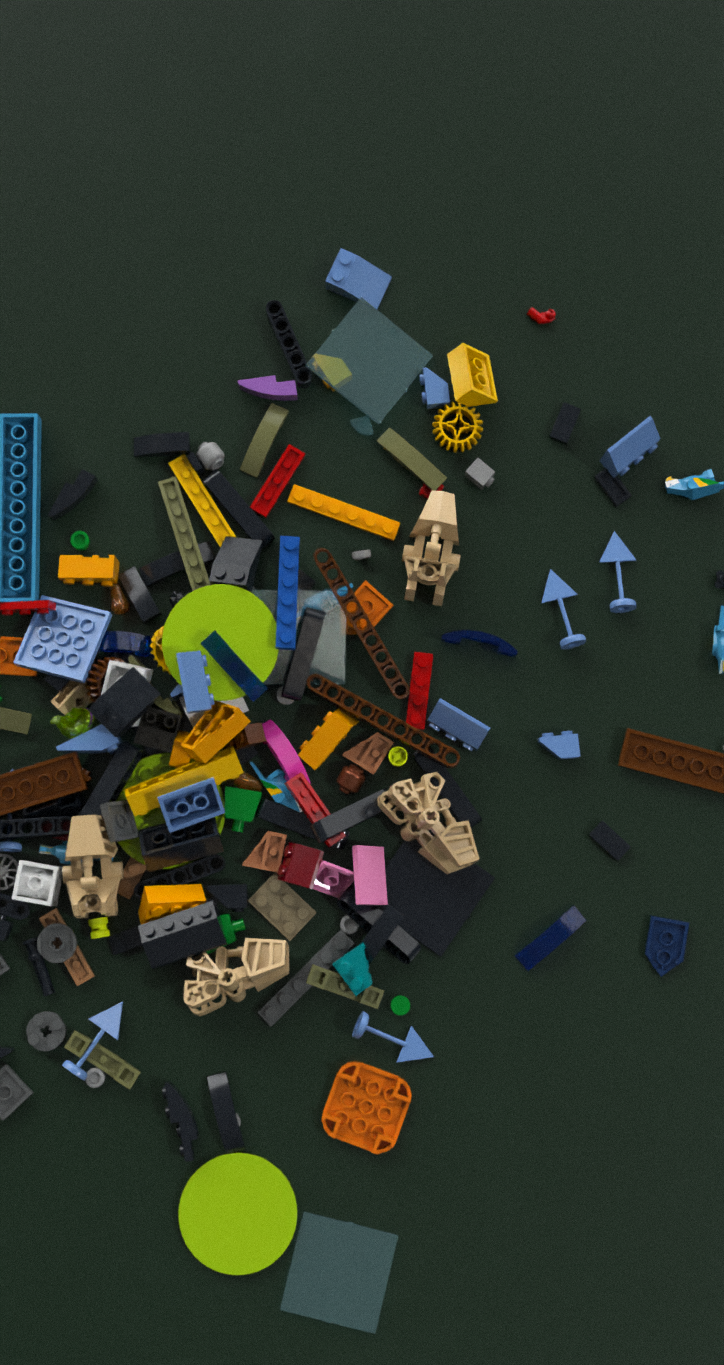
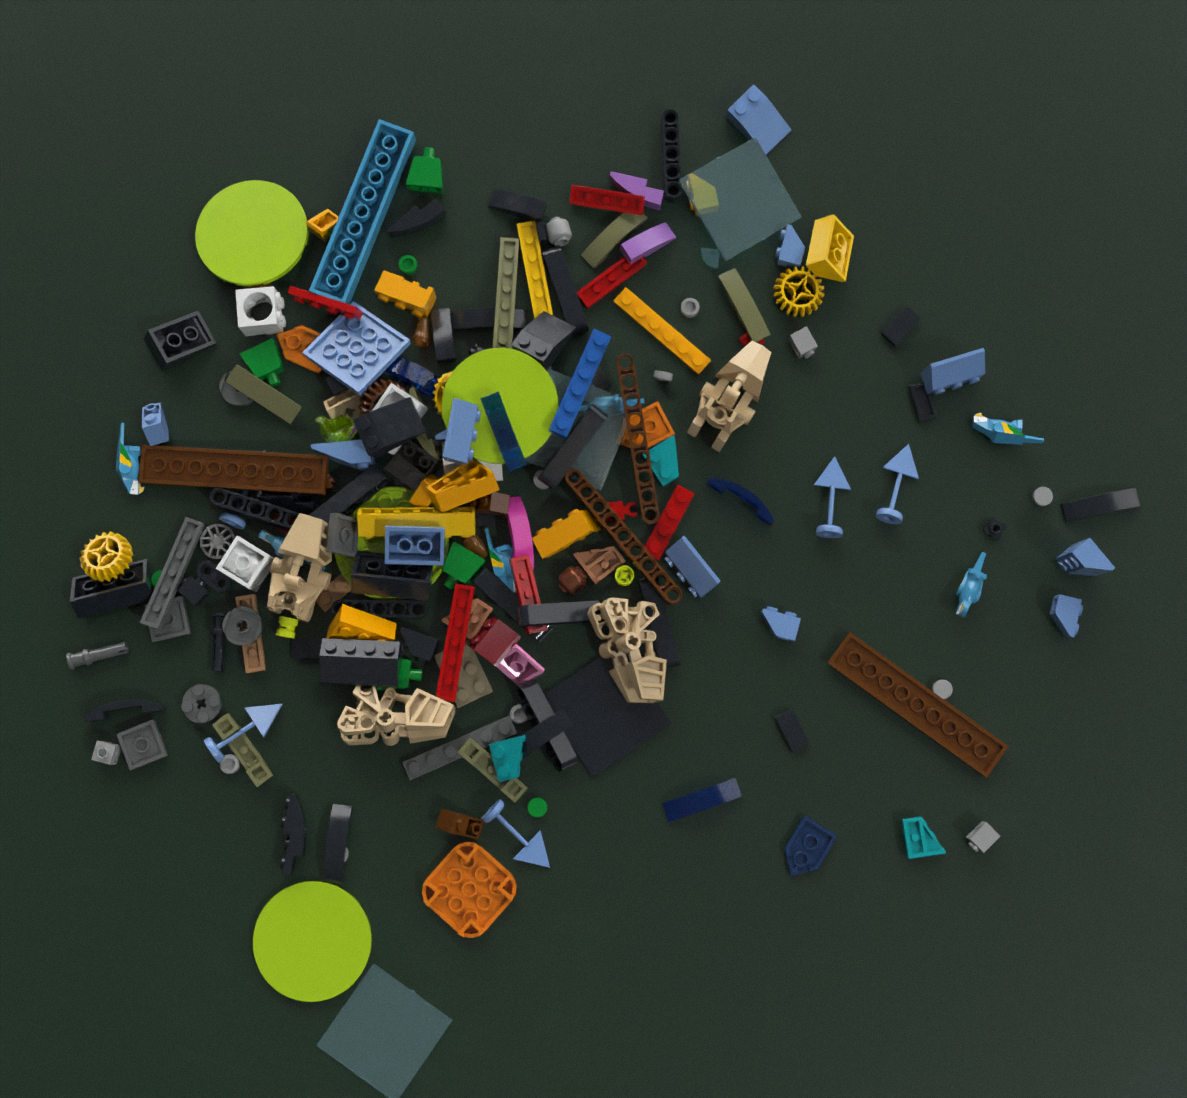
camera: 20 degrees right, 0 degrees up
(63, 447) = (426, 173): none -> green torso
(245, 408) = (607, 199): none -> red plate
(264, 880) = (455, 642): none -> red plate
(298, 434) = (647, 242): none -> medium lavender slope
(333, 1049) = (459, 824): none -> reddish brown slope
(361, 480) = (689, 307): none -> light grey tile
(369, 875) = (555, 675): bright pink tile -> none
(370, 696) = (621, 510): none -> red plate
(393, 634) = (664, 461): none -> teal wing
(542, 318) = (917, 220): red arm -> none

